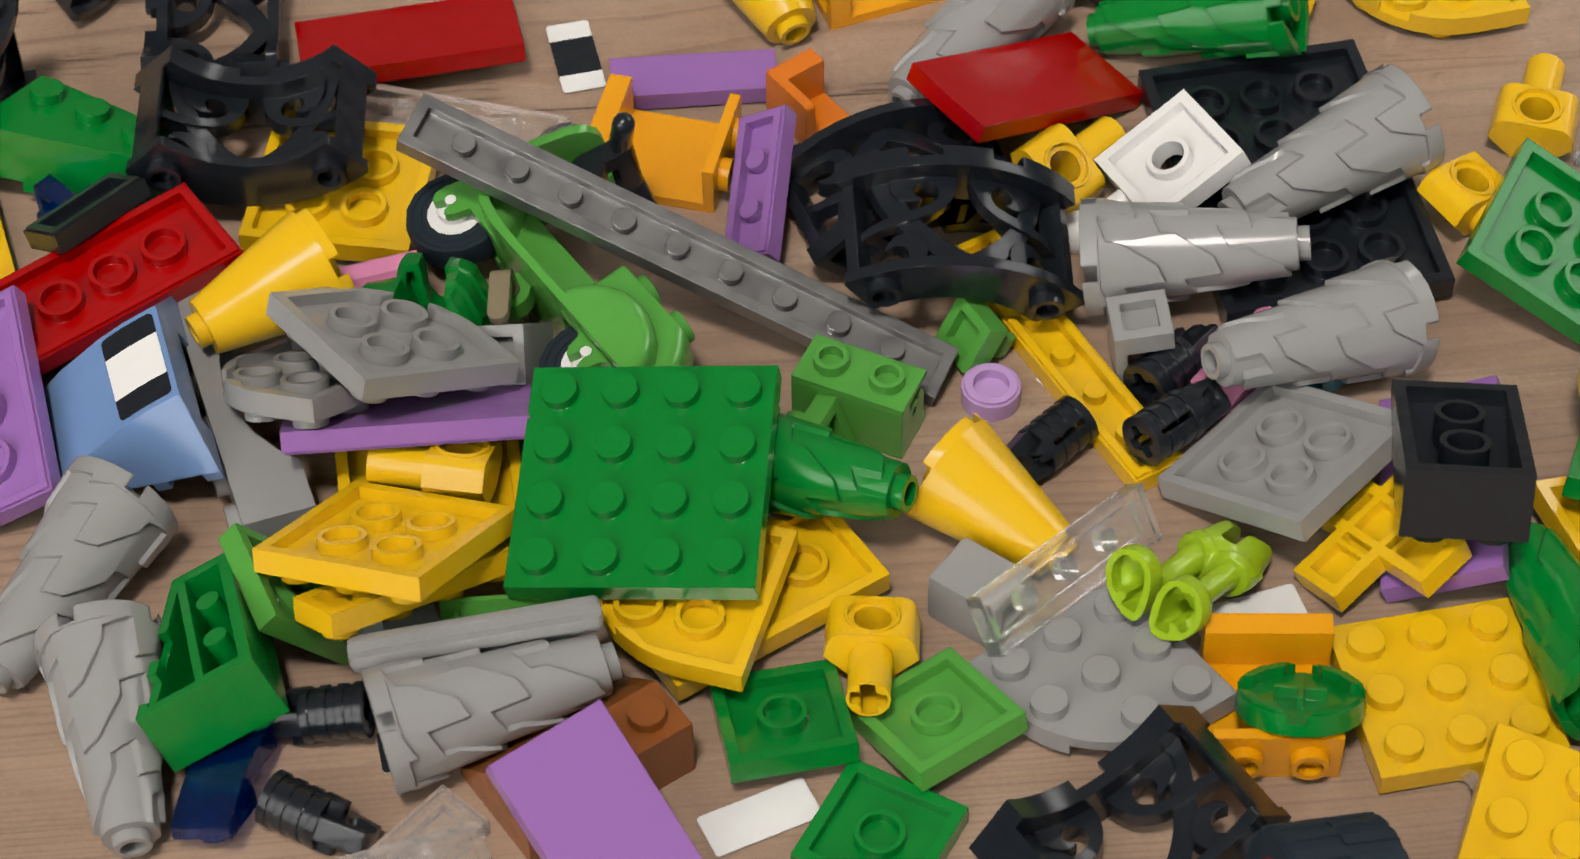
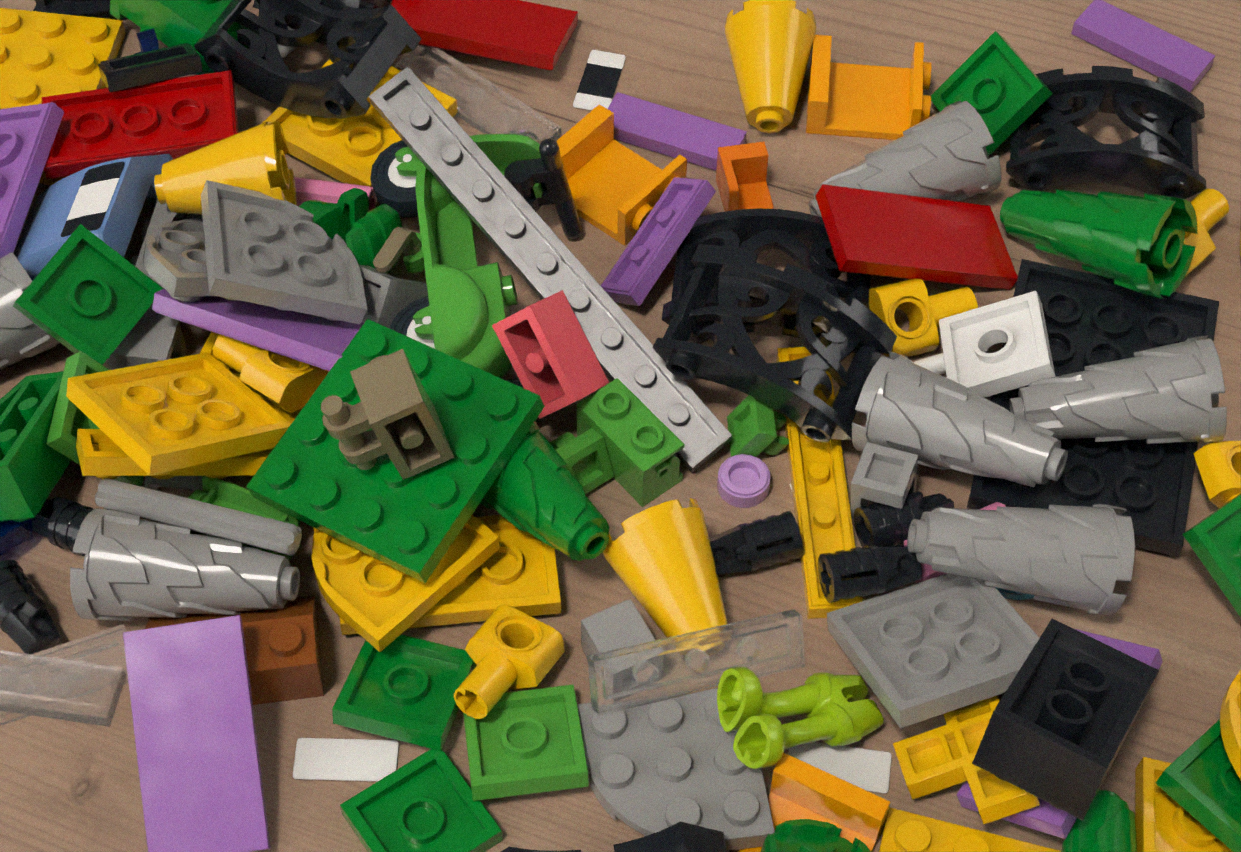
camera: 25 degrees right, 5 degrees up
(202, 465) = (88, 296): none -> green plate
(660, 438) = (396, 412): none -> dark tan brick
(735, 327) = (551, 353): none -> coral brick

